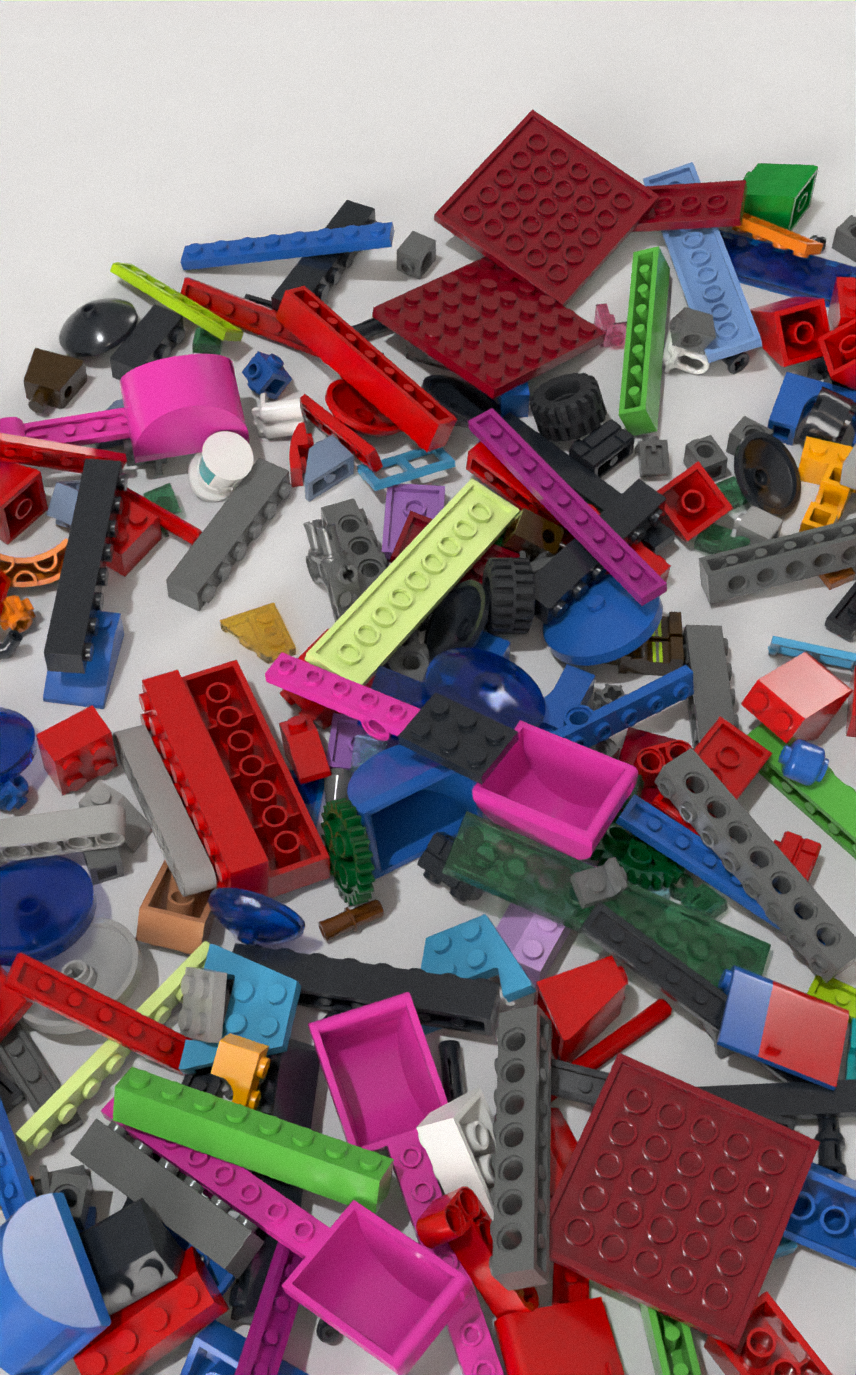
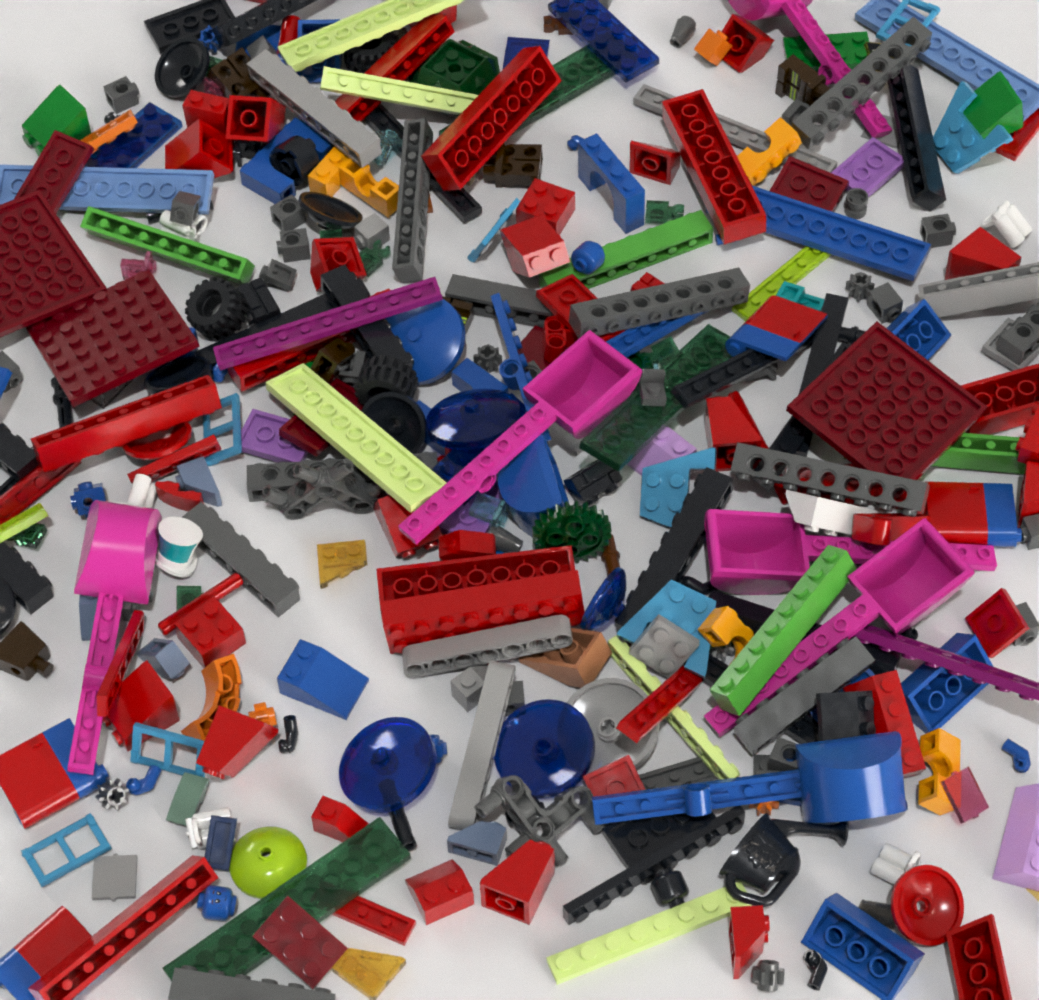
camera: 70 degrees left, 0 degrees up
(77, 750) = (416, 690): red brick -> none
(84, 567) = (253, 645): black brick -> none
(458, 738) = (529, 423): black plate -> none

